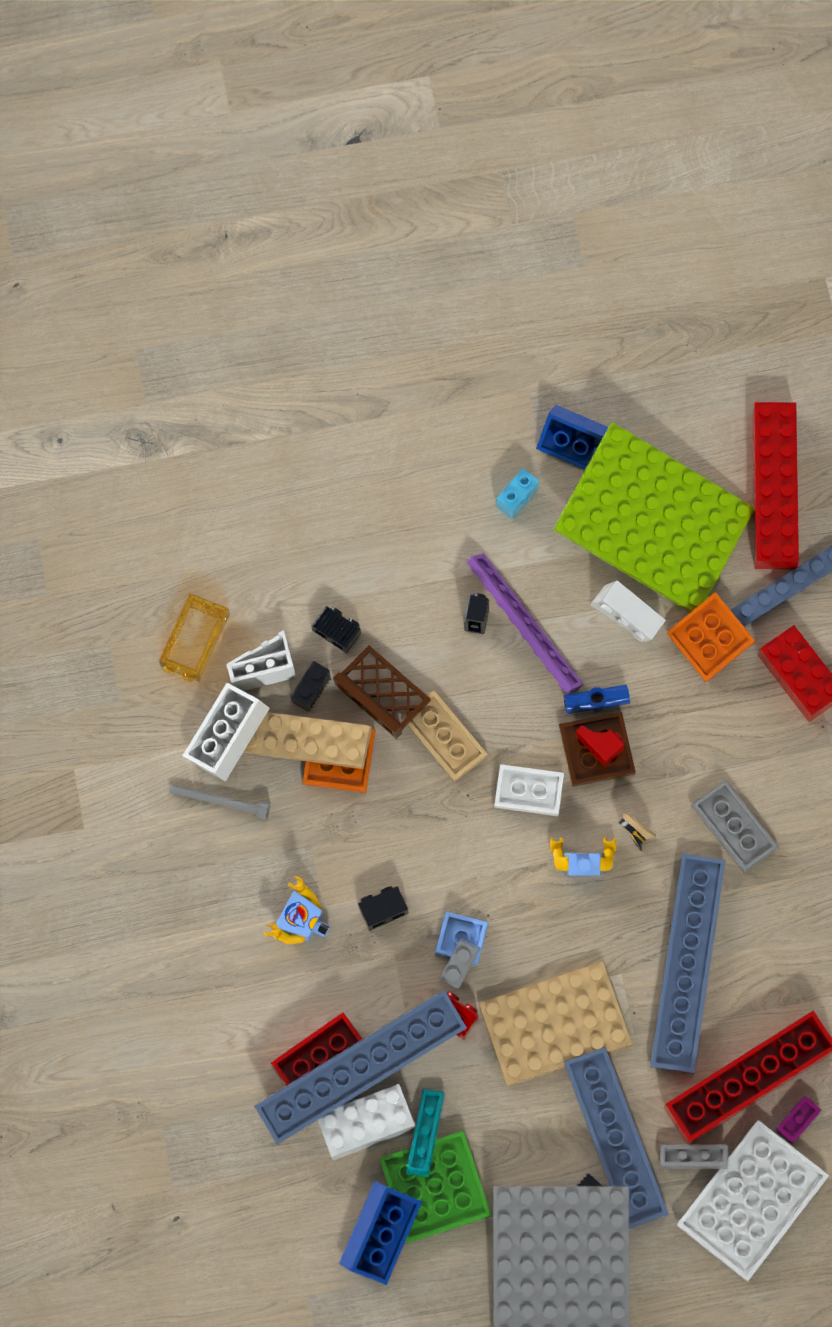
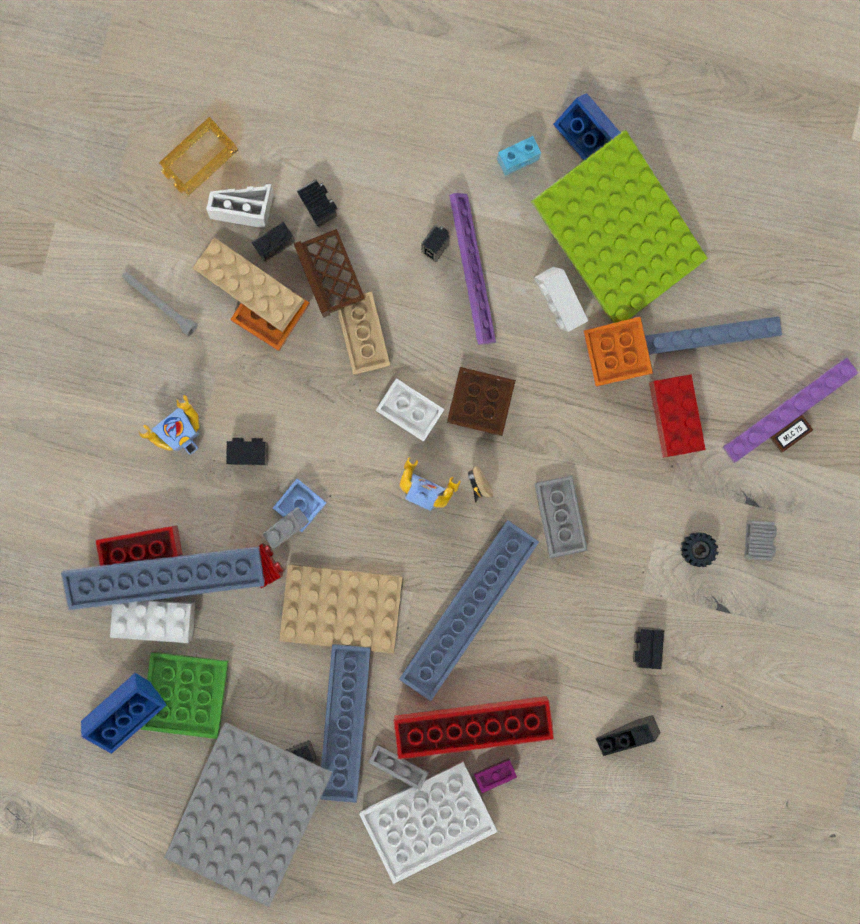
camera: 20 degrees right, 15 degrees up
(226, 732) = (184, 249): white brick -> none
(425, 1132) = (195, 650): teal tile -> none
(582, 701) = (513, 363): blue piece -> none
(602, 745) = (485, 403): red arch -> none
(775, 485) = (735, 246): red brick -> none

